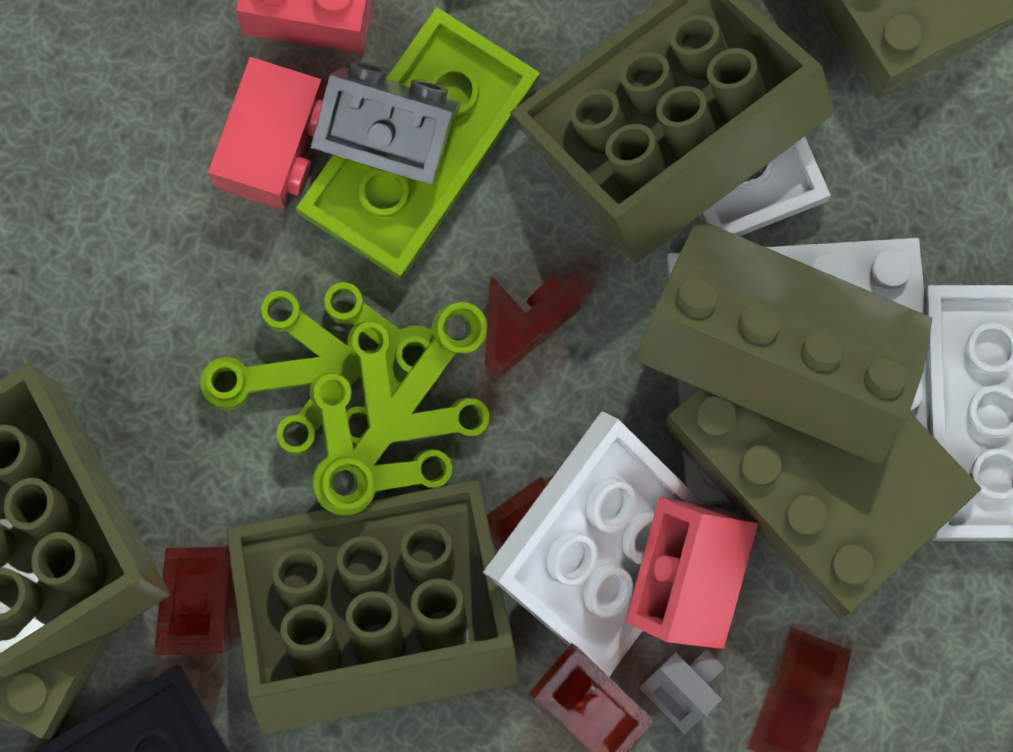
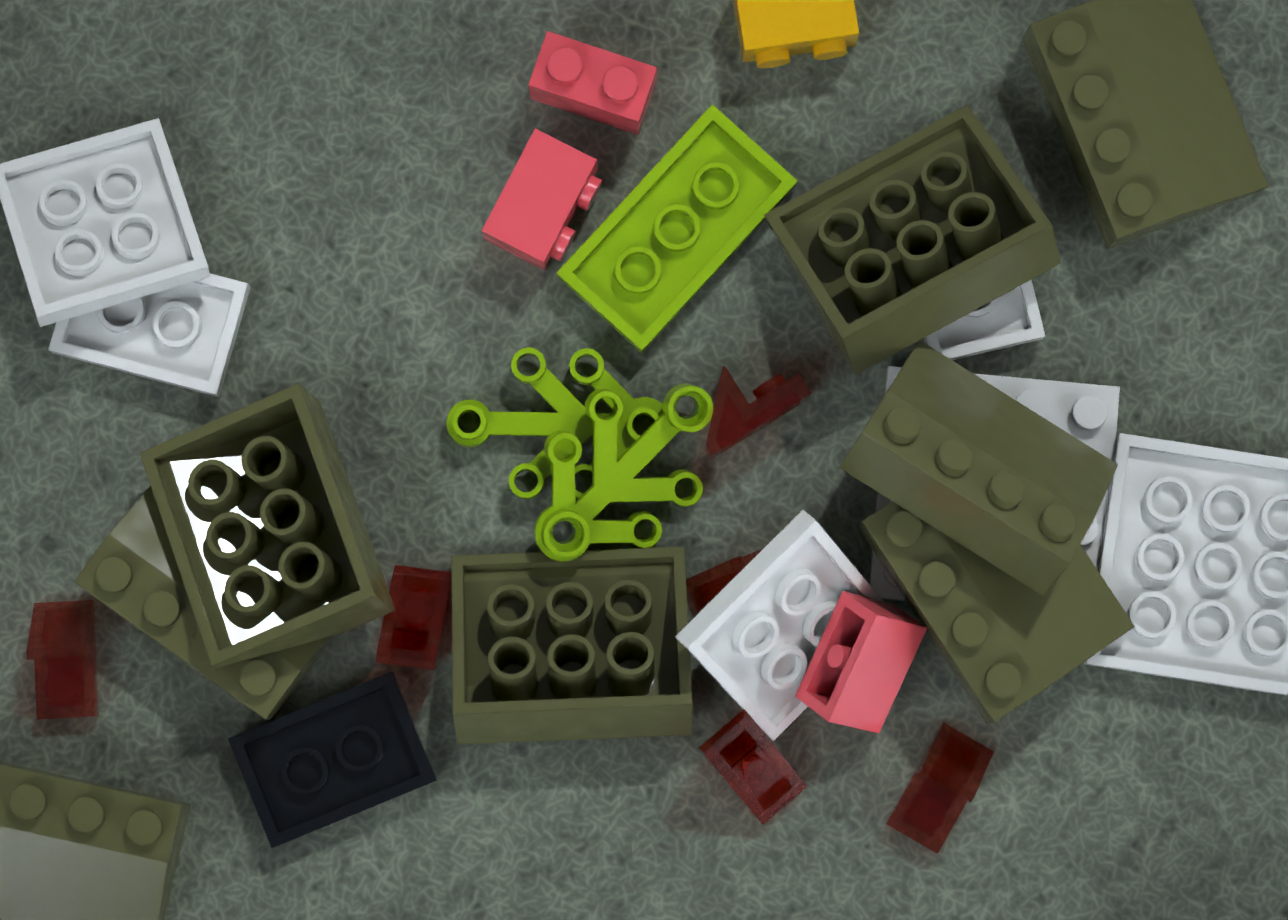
camera: 10 degrees right, 5 degrees up
(385, 121) = (649, 208): bracket -> none
(683, 689) = (837, 763): light grey tile -> none

